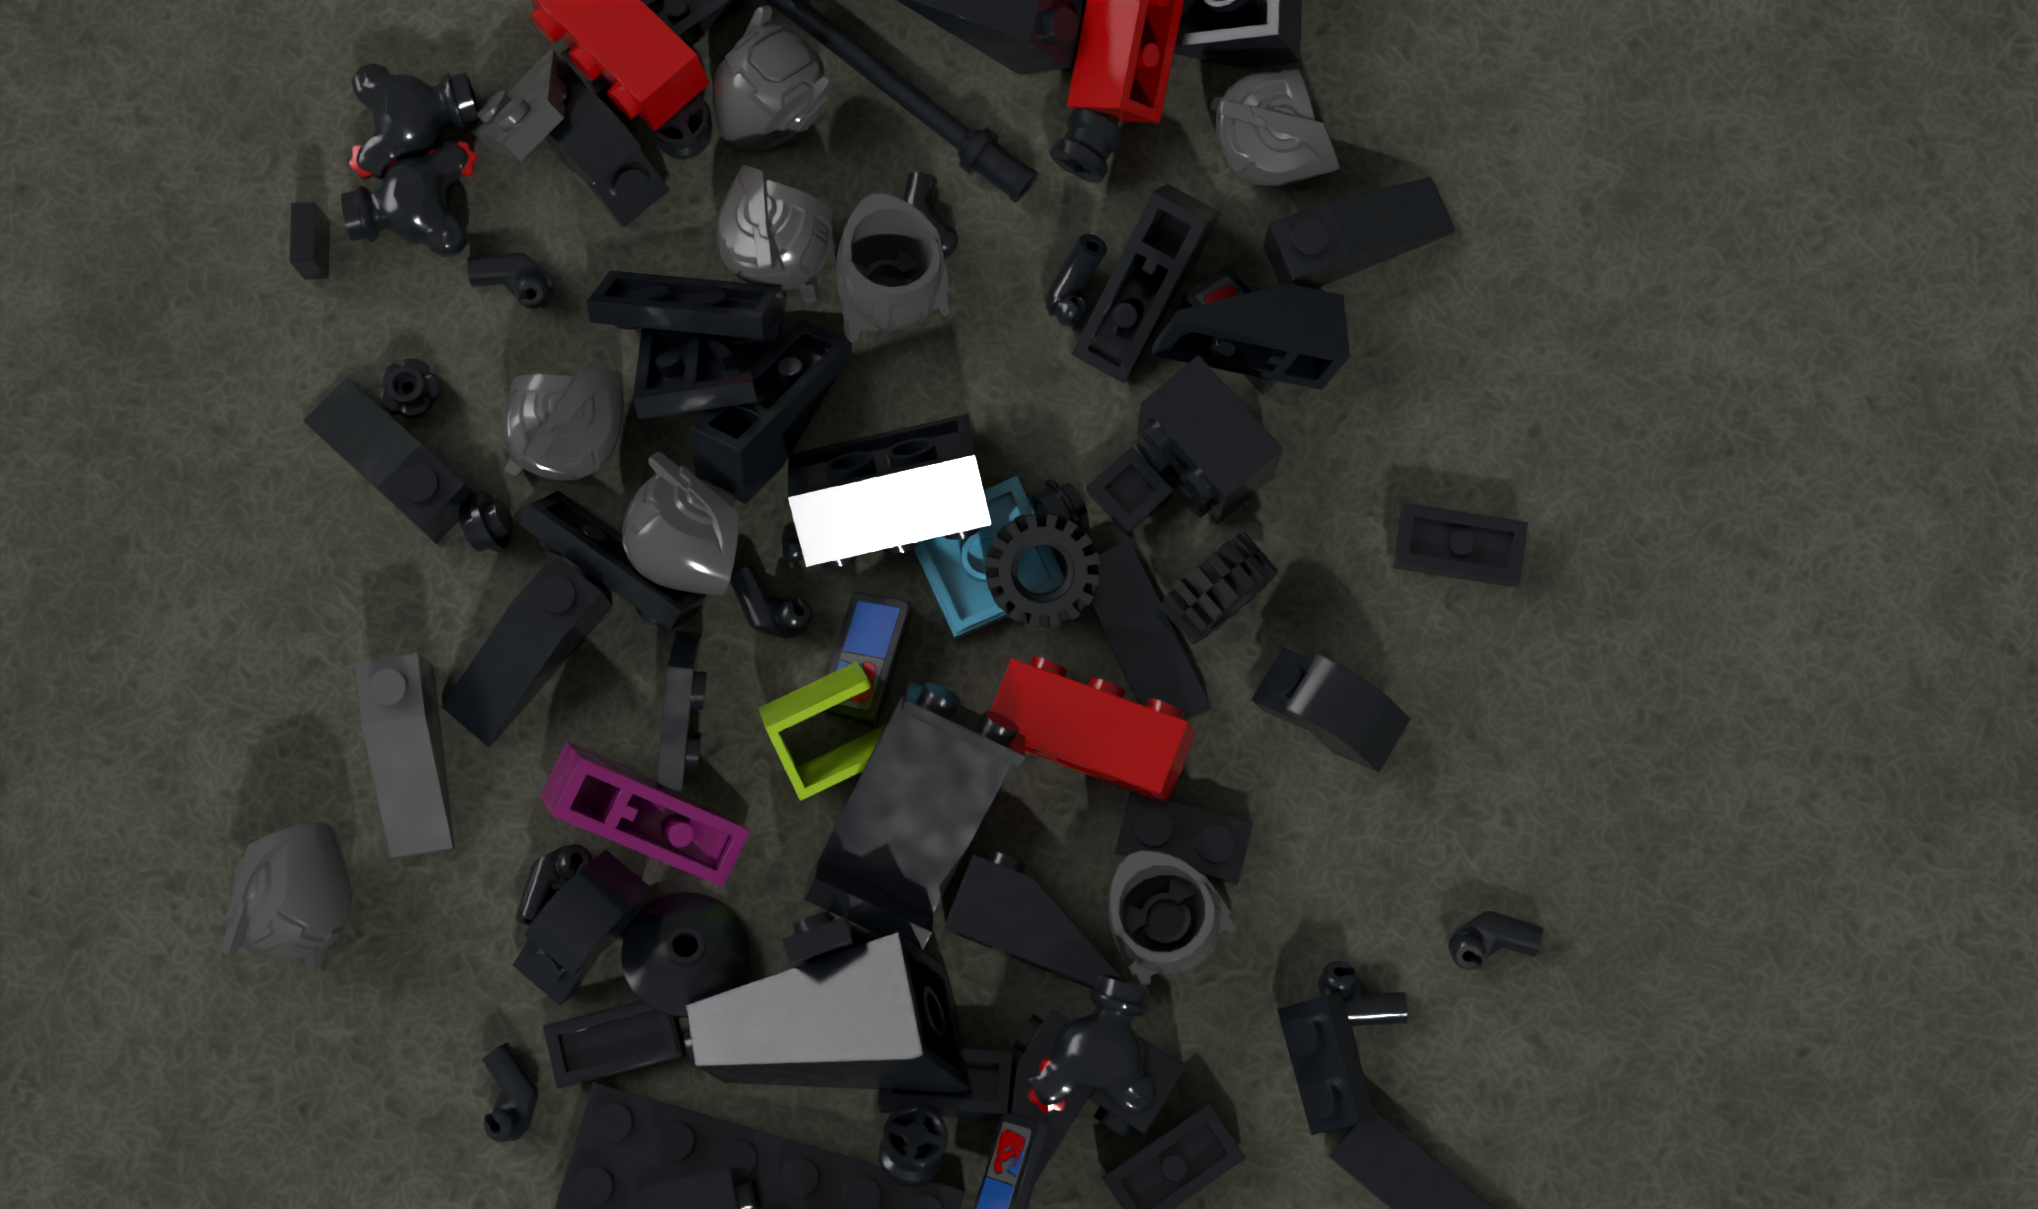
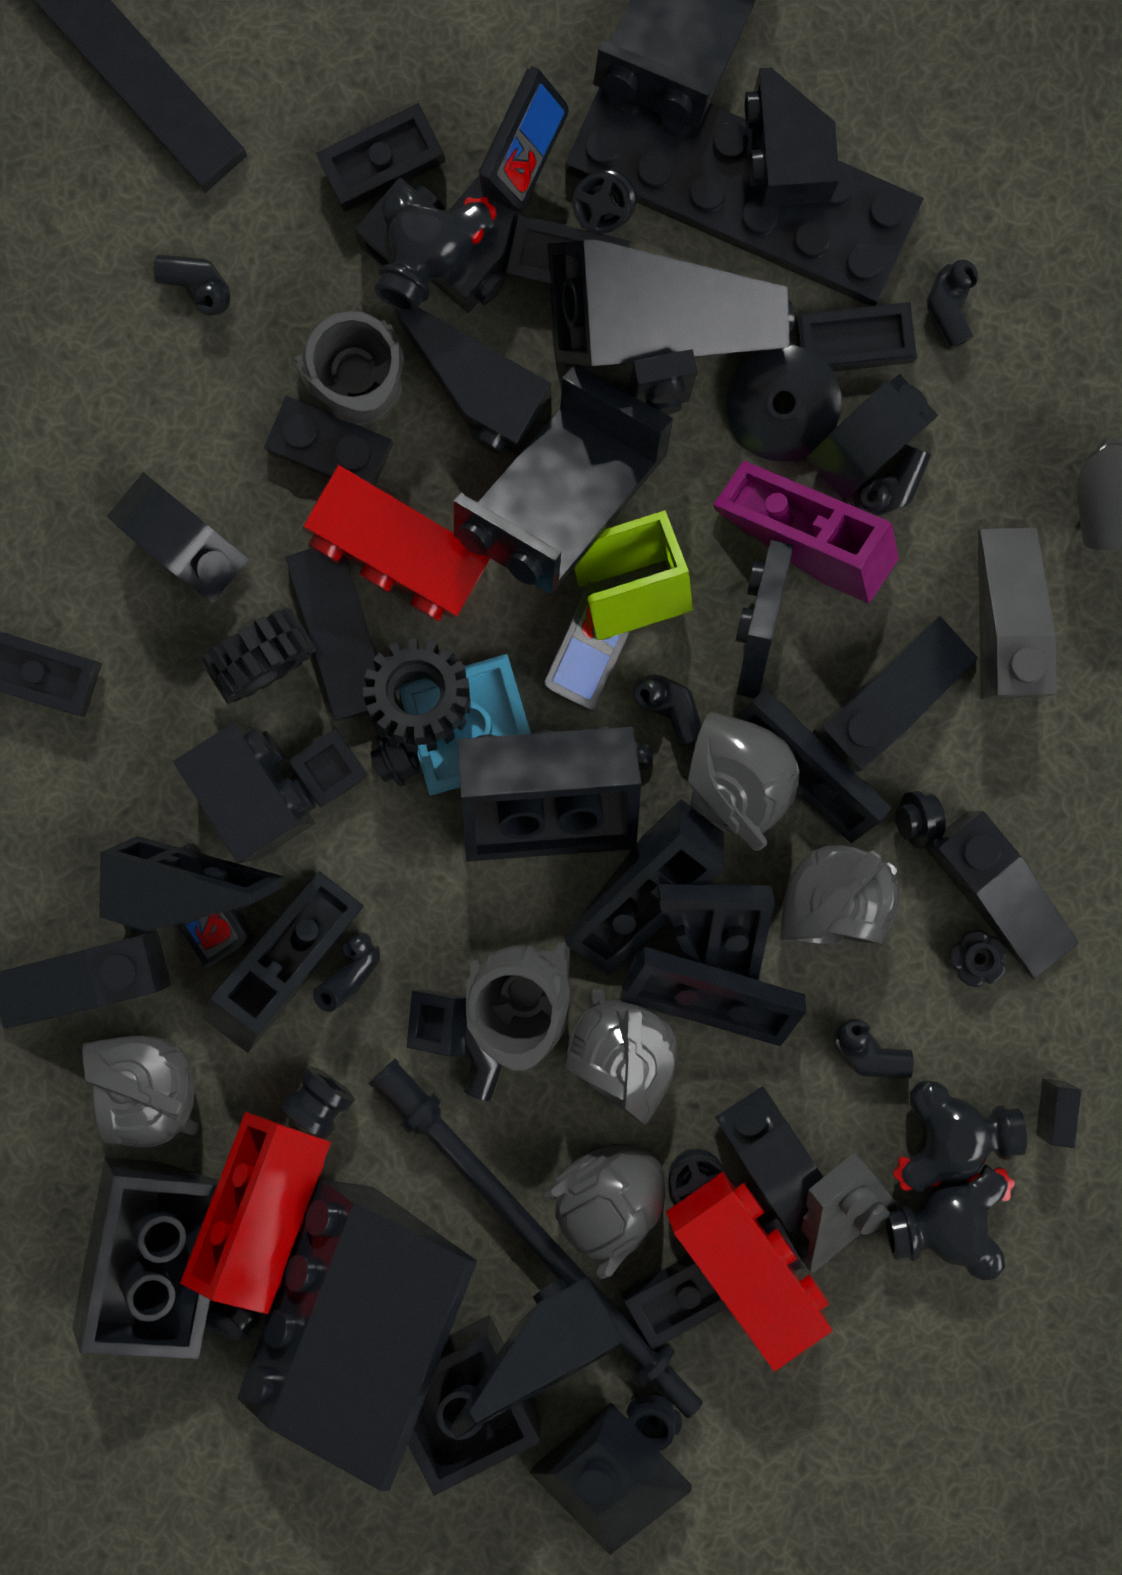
camera: 175 degrees left, 10 degrees up
(973, 242) = (437, 1023): none -> black tile
(1326, 1063) = (233, 225): black plate -> none
(1488, 934) = (73, 323): black arm -> none

